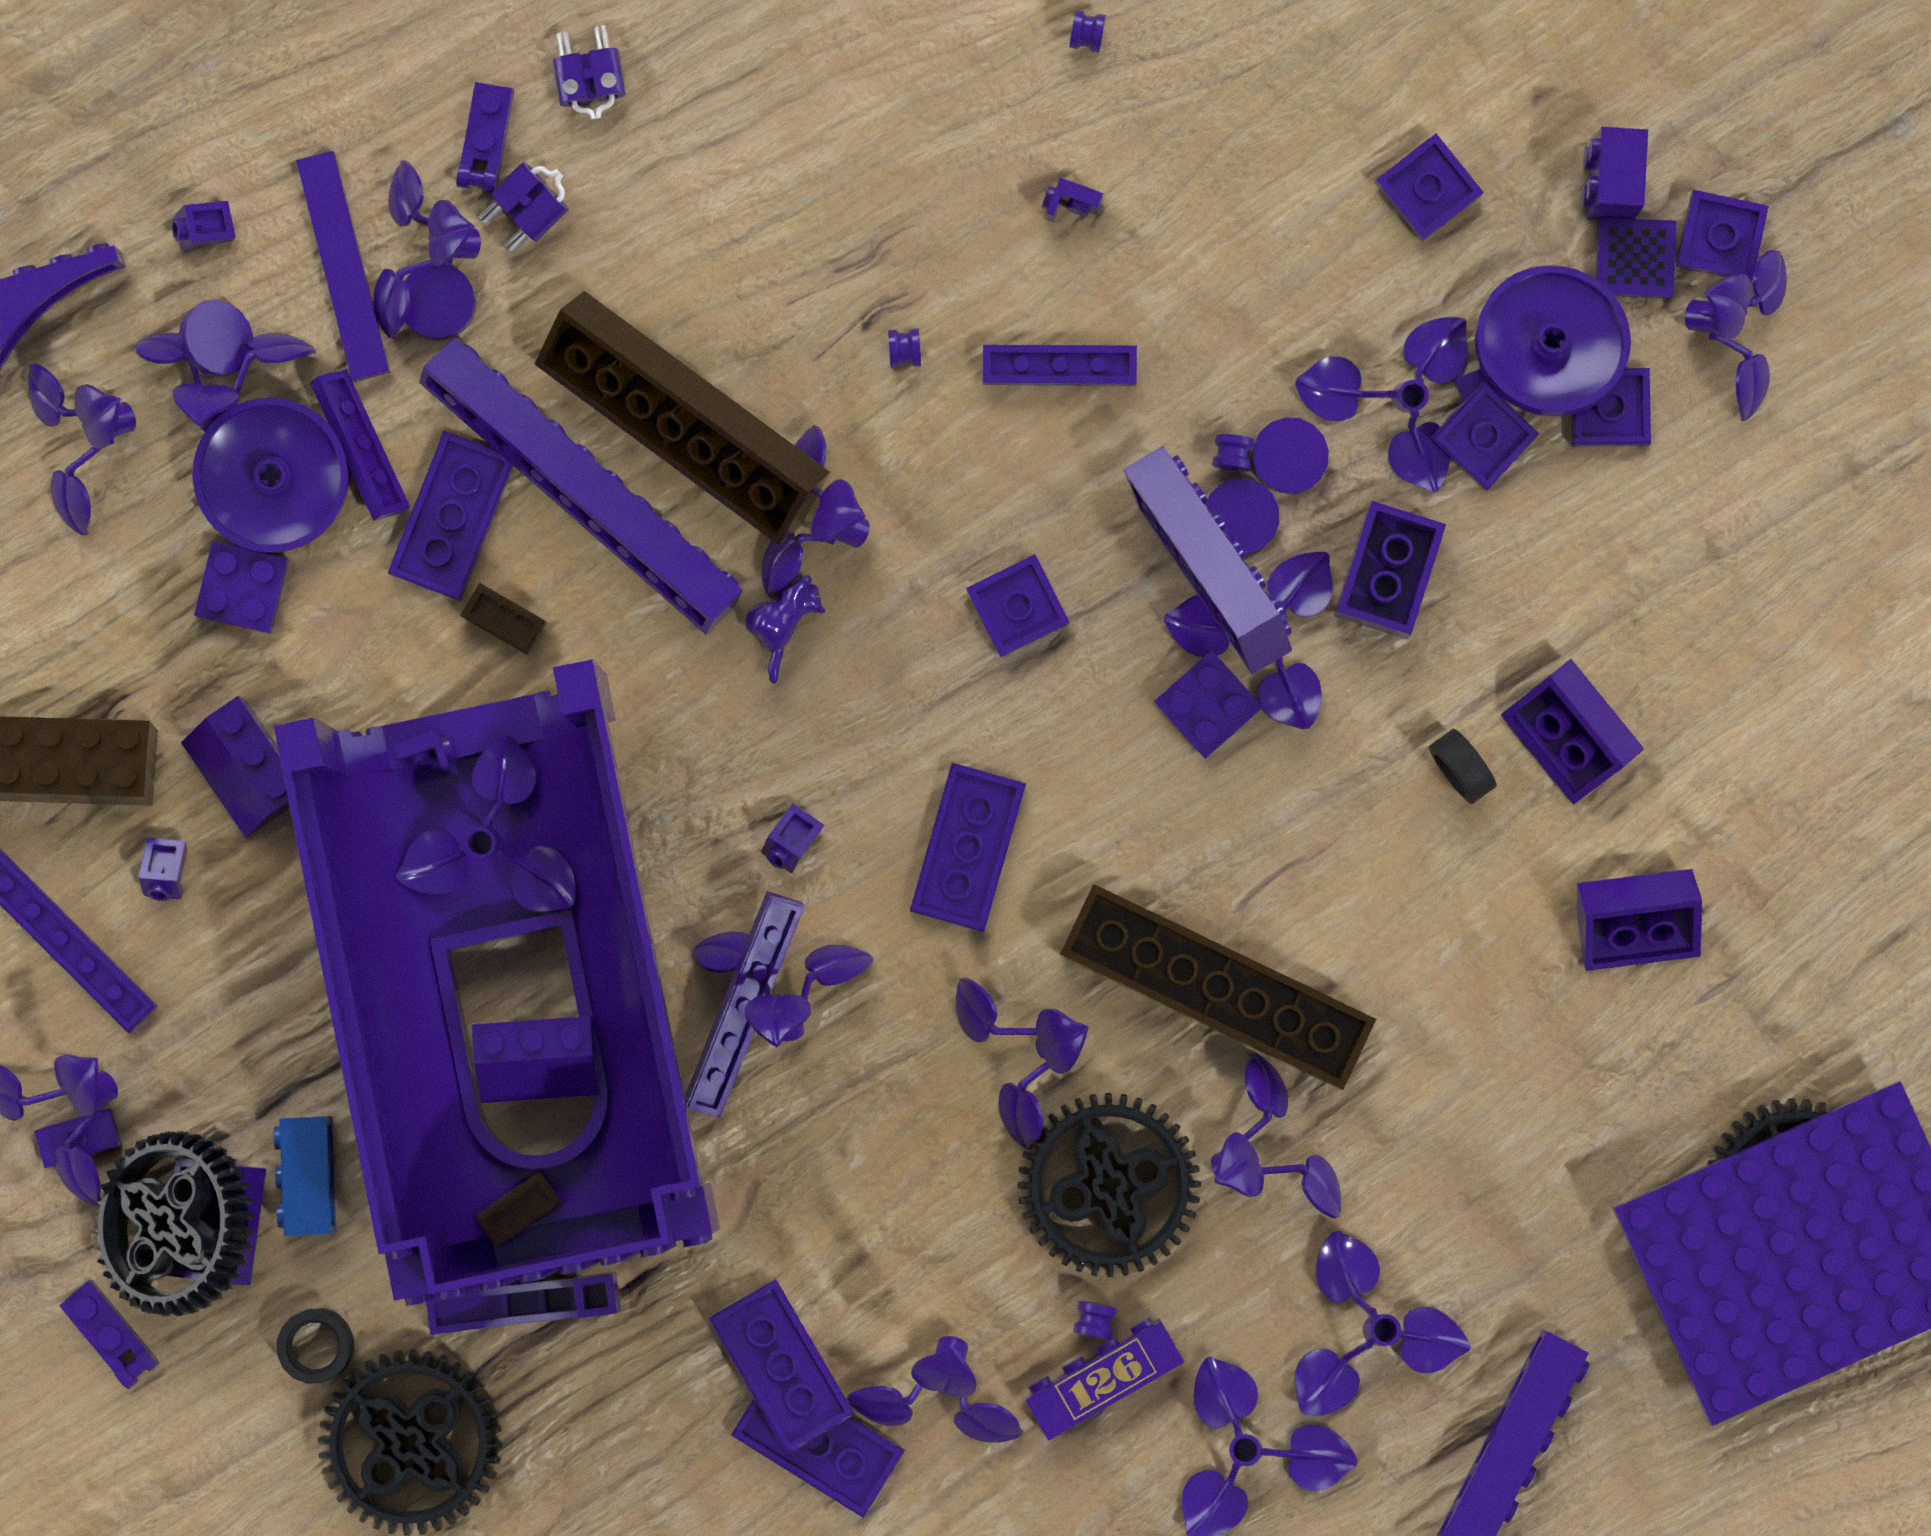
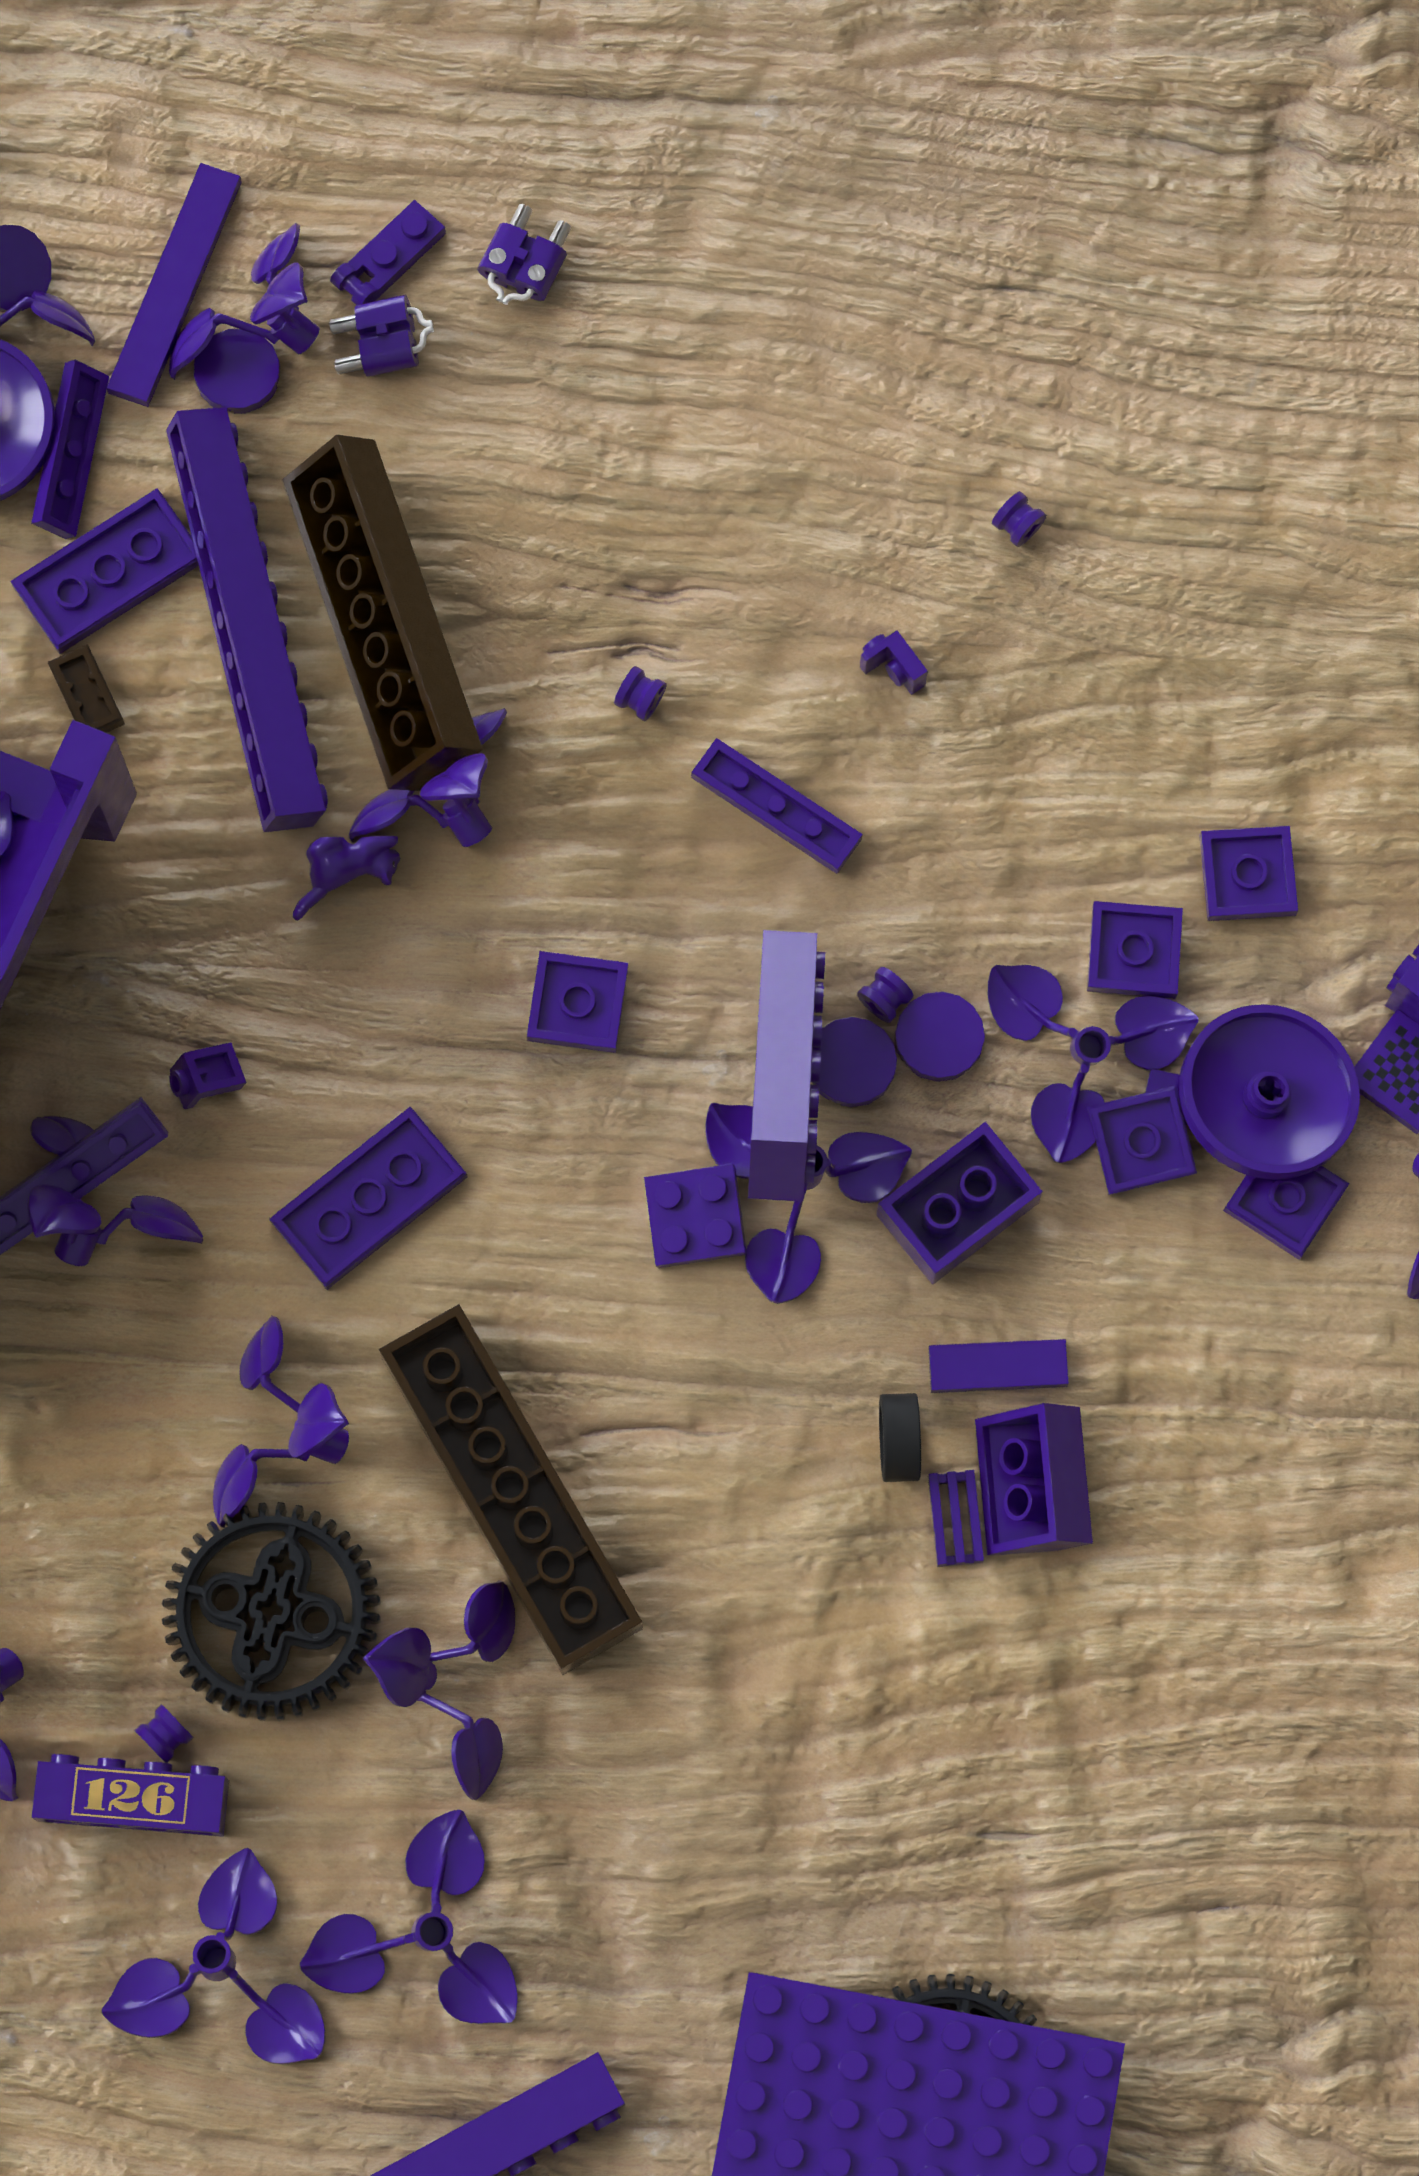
camera: 30 degrees right, 10 degrees down
(203, 225) = (74, 164): dark purple bracket -> none
(1386, 299) = (1134, 949): none -> dark purple plate
(1491, 666) = (998, 1366): none -> dark purple tile
(1556, 819) = (951, 1480): none -> dark purple tile
(1639, 919) = (973, 1709): dark purple slope -> none

